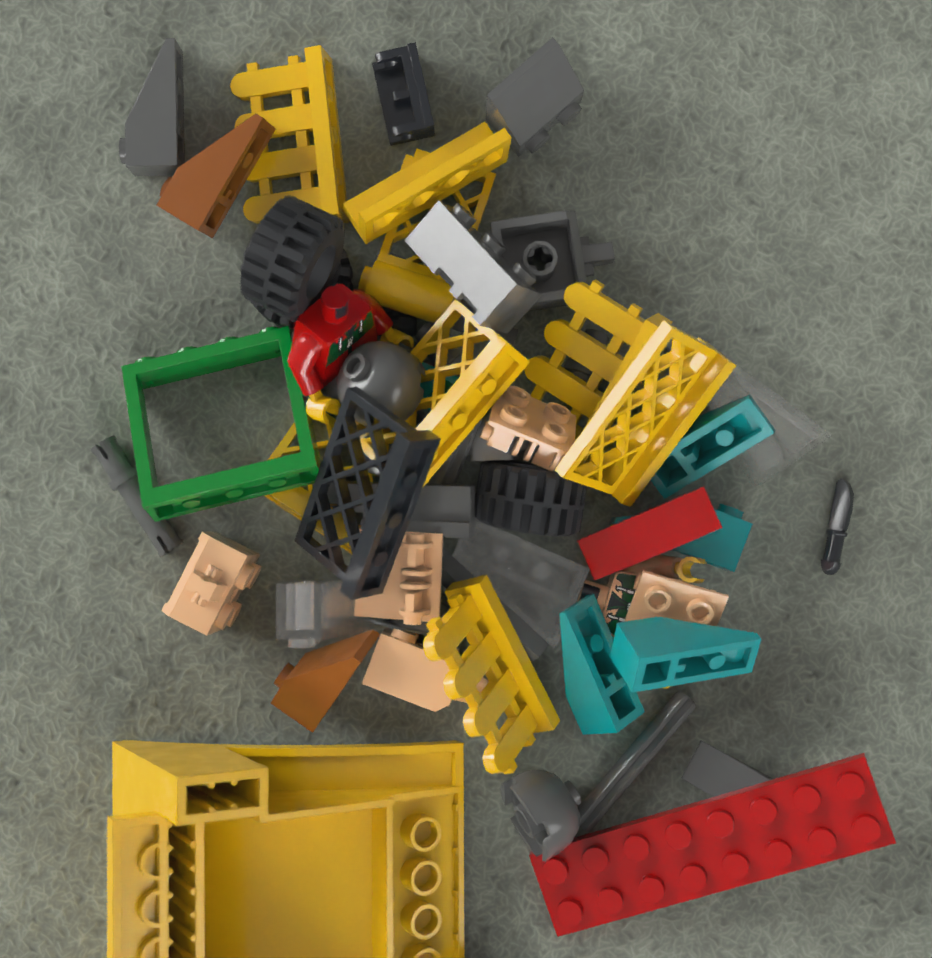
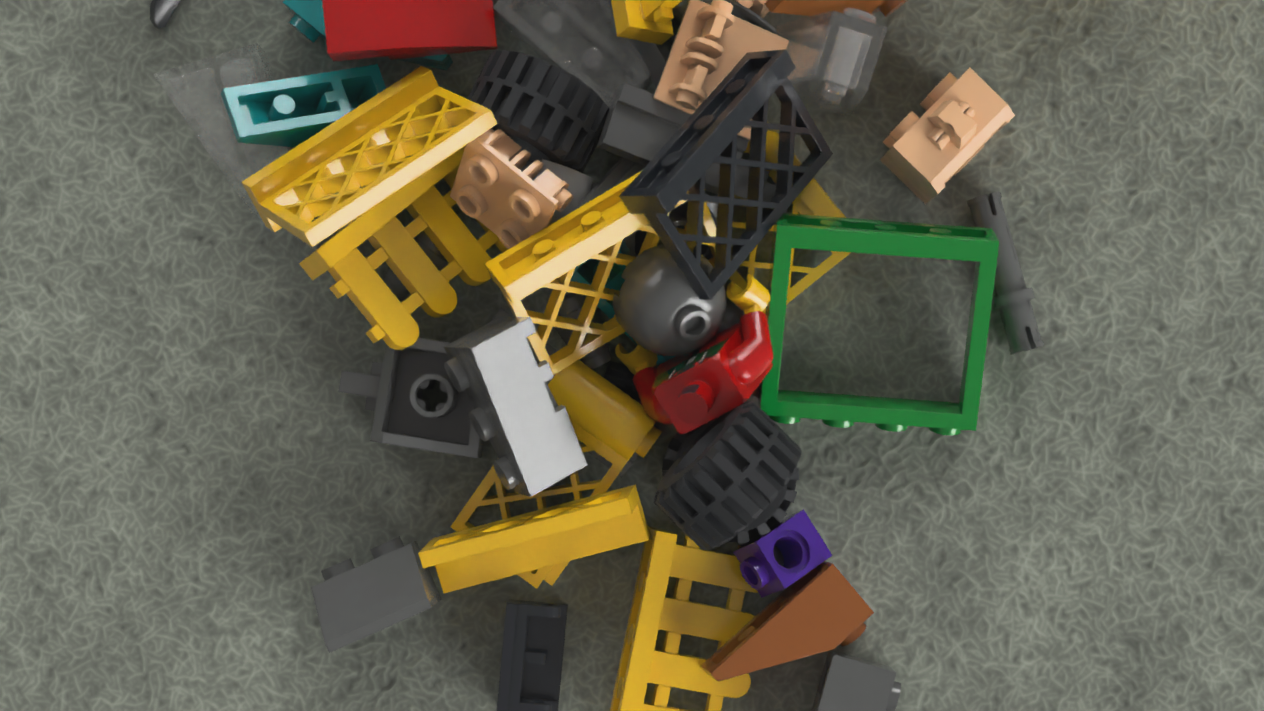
camera: 160 degrees left, 0 degrees up
(223, 231) = (799, 545): none -> dark purple brick

